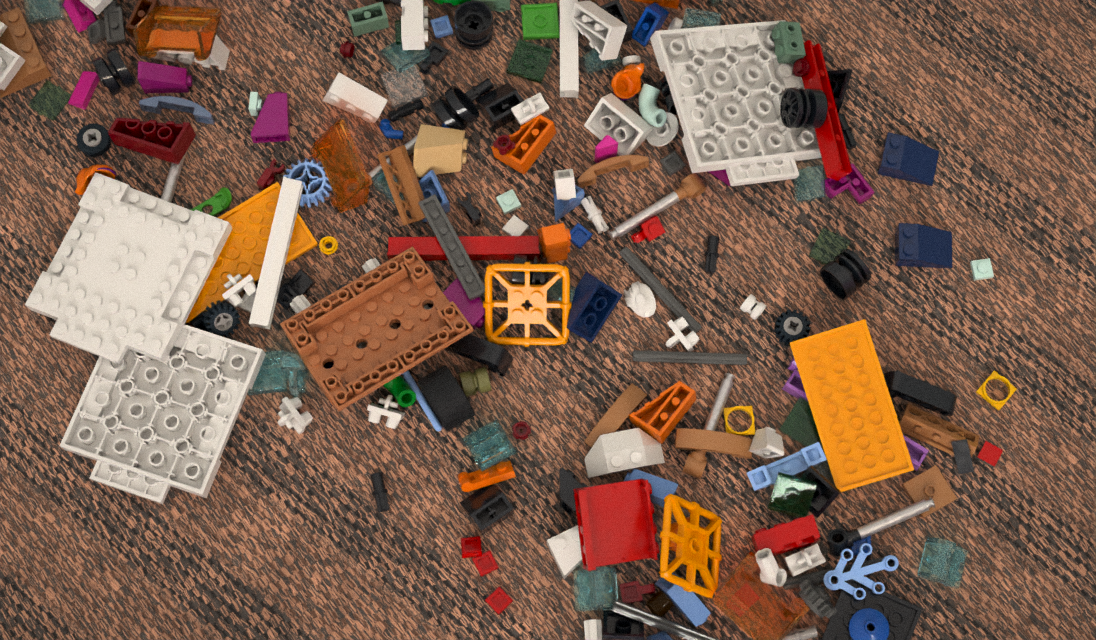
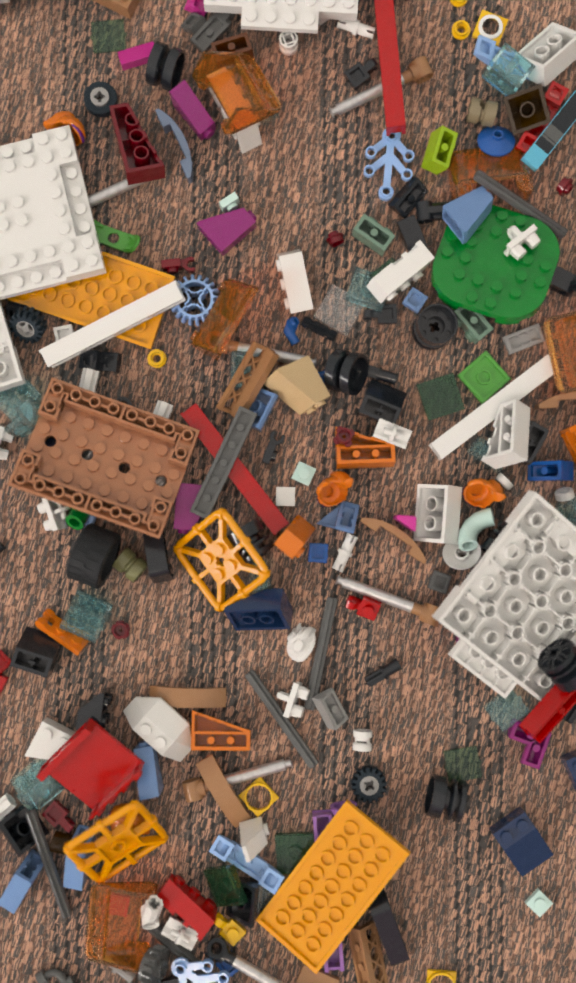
camera: 55 degrees right, 15 degrees up
(232, 294) = (52, 318): white hips -> none
(539, 185) = (334, 489): none -> orange hair
(564, 184) = (348, 511): white slope -> none
(709, 314) = (330, 709): none -> light grey slope
(832, 521) = (230, 930): none -> yellow plate

